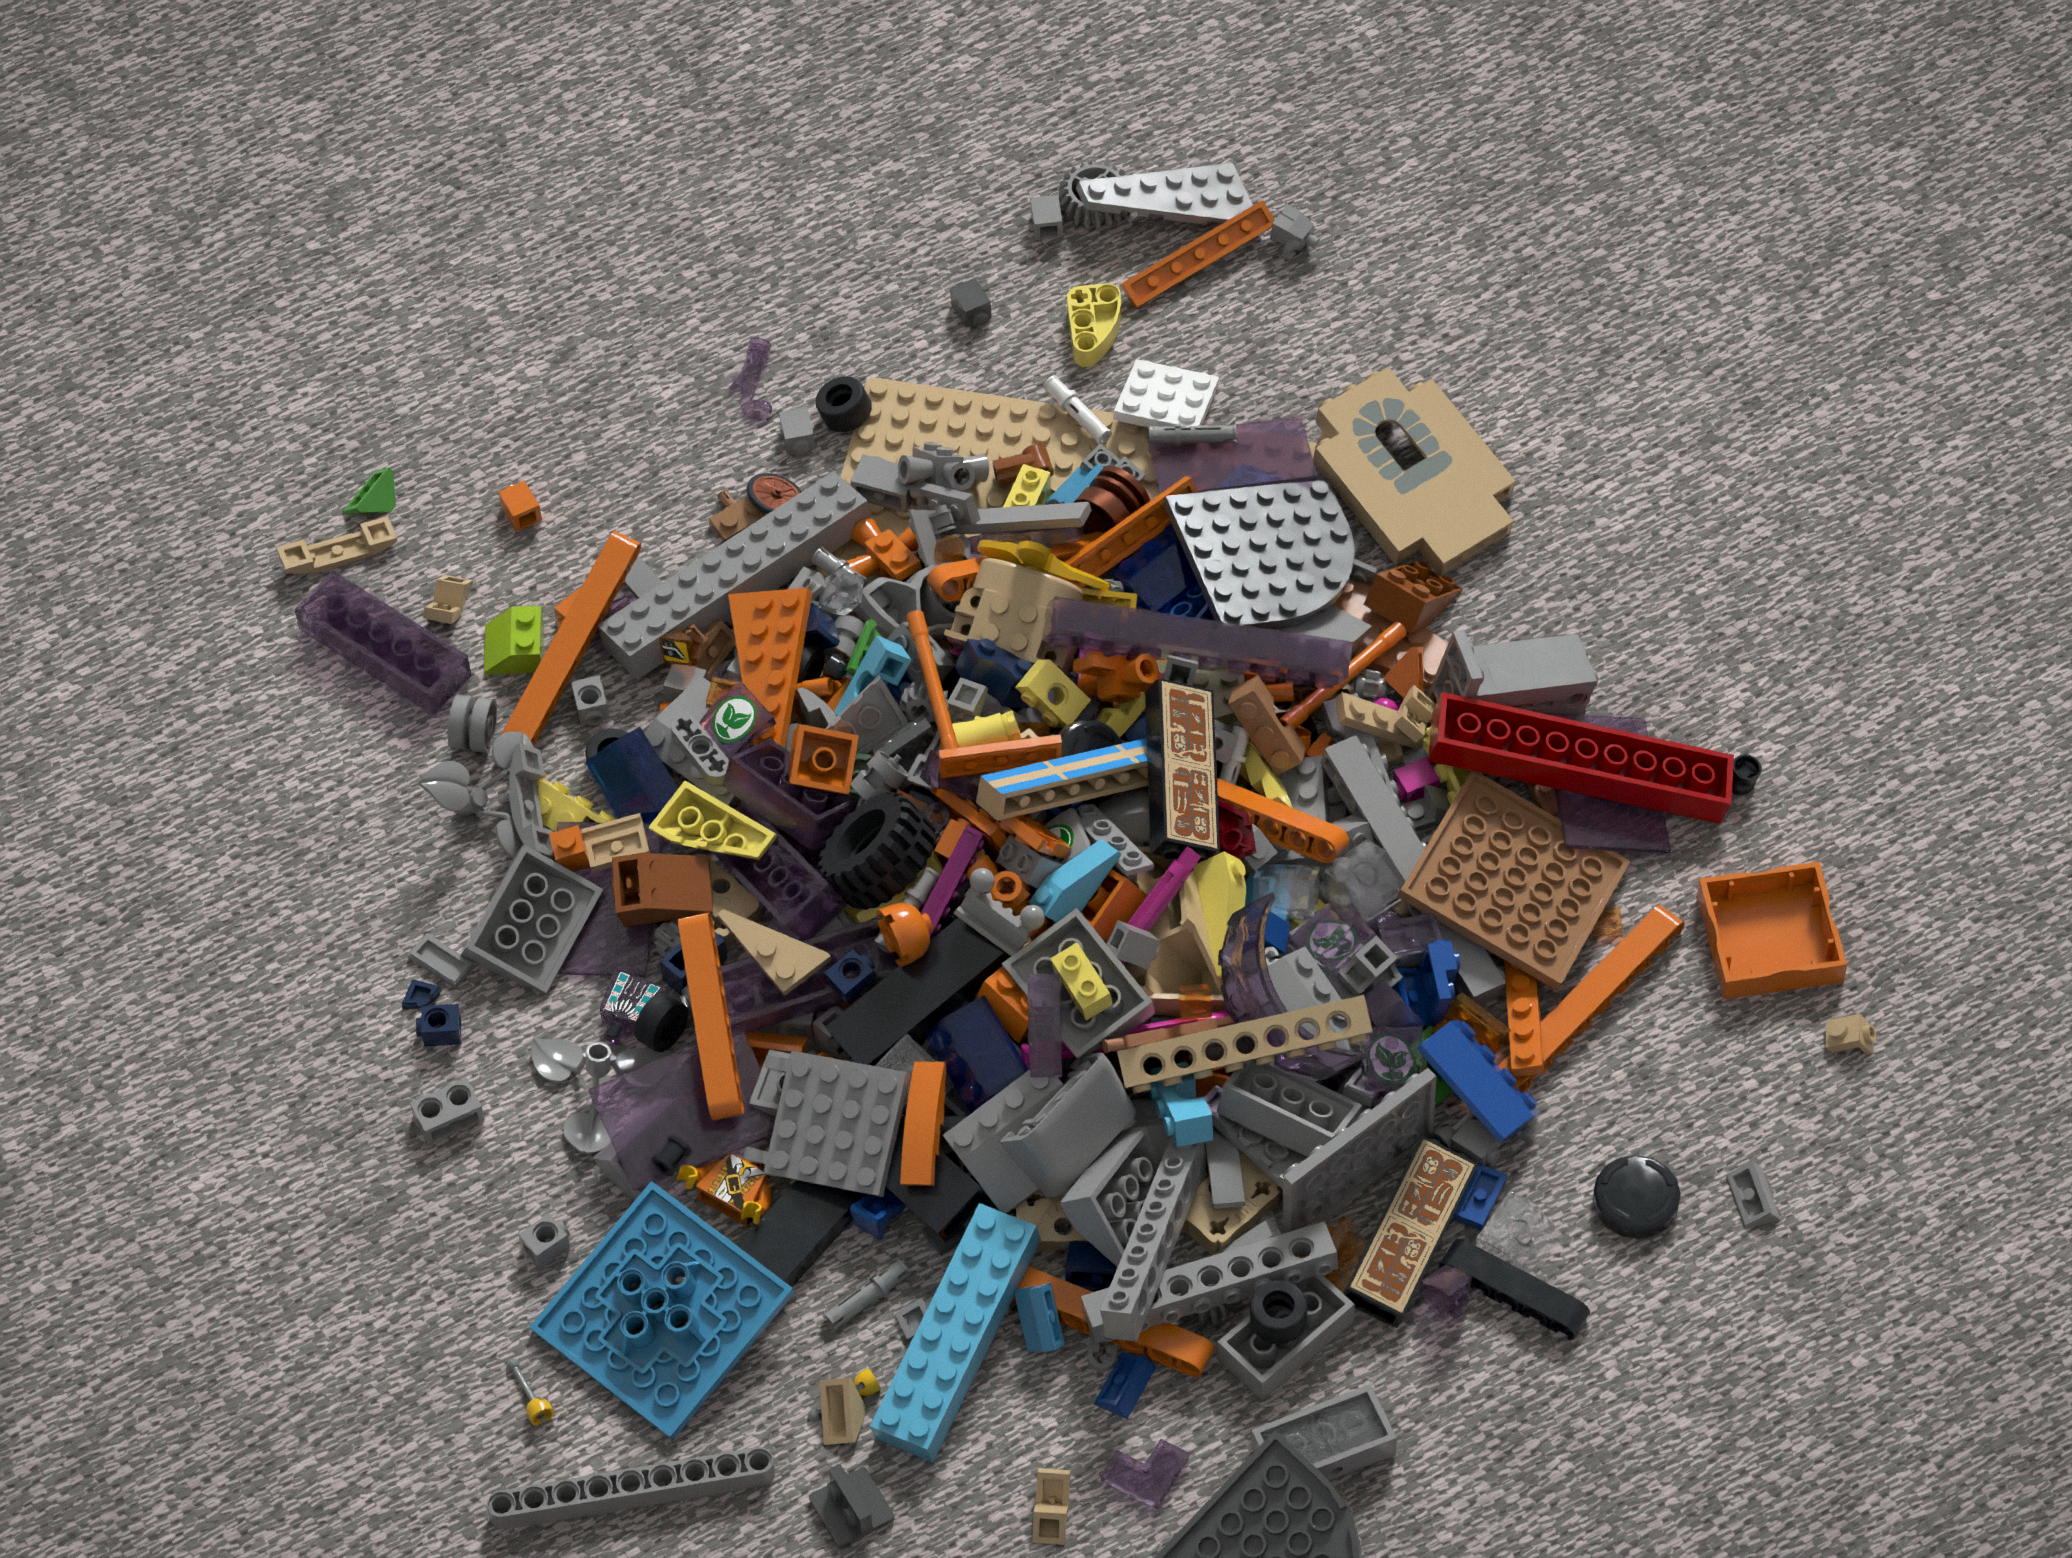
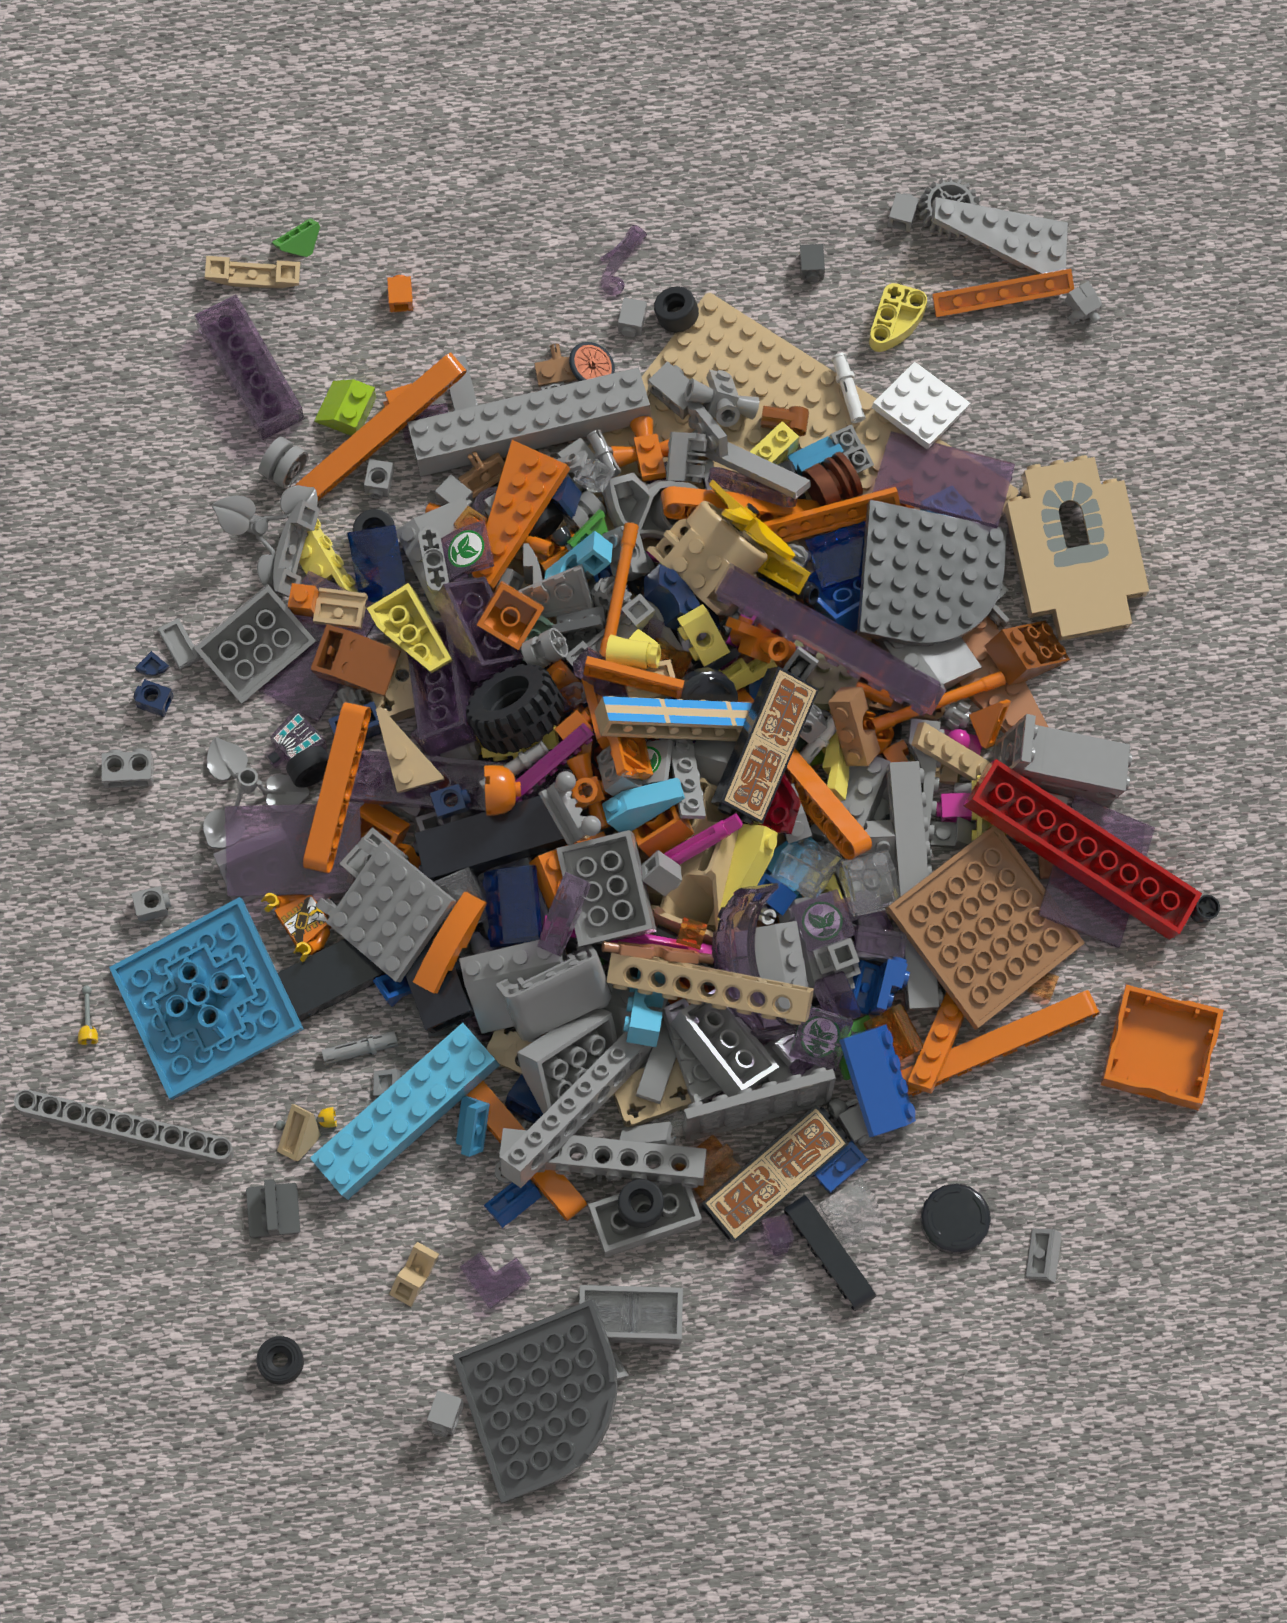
camera: 20 degrees right, 15 degrees up
(448, 599) = (316, 348): tan slope -> none
(671, 1155) = (263, 882): black bush -> none
(678, 648) = (456, 466): slope -> none
(949, 549) = (691, 472): clear orange tile -> none
(1081, 981) = (604, 892): light yellow brick -> none
(1192, 434) = (929, 450): light grey pin -> none
(1414, 714) = (976, 756): tan slope -> none
(1850, 1033) = (1180, 1157): tan bracket -> none

